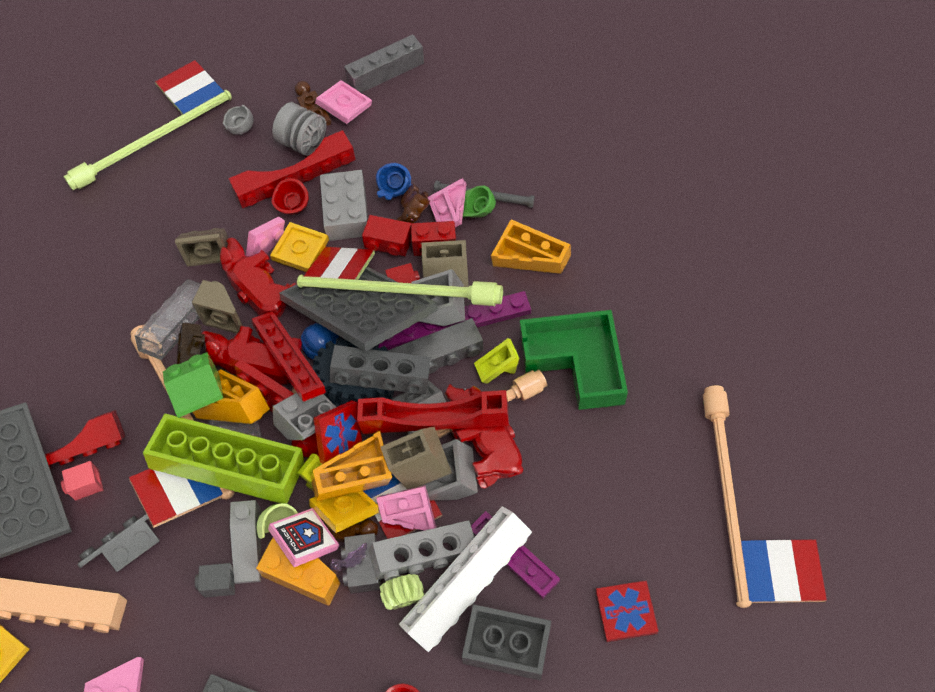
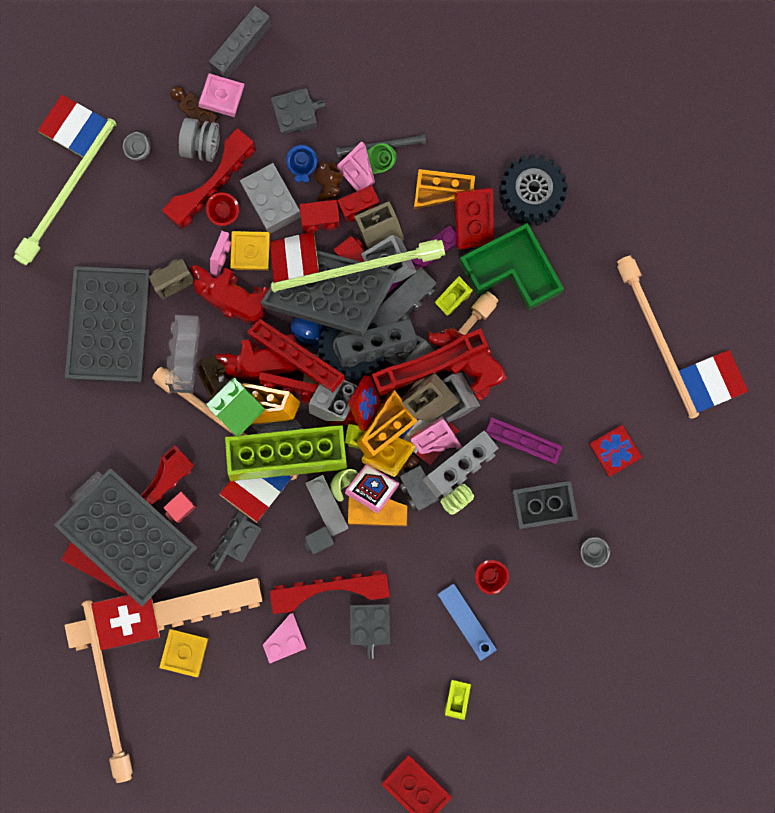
camera: 25 degrees left, 20 degrees up
(116, 270) = (107, 324): none -> dark grey plate
(145, 638) = (288, 599): none -> red arch
(215, 307) = (214, 331): dark tan slope -> none
(353, 559) = (413, 490): clear purple piece -> none
(410, 137) = (296, 111): none -> dark grey plate
(465, 578) = (499, 472): white brick -> none
(553, 285) = (474, 217): none -> red plate
(632, 299) = (535, 210): none -> black wheel

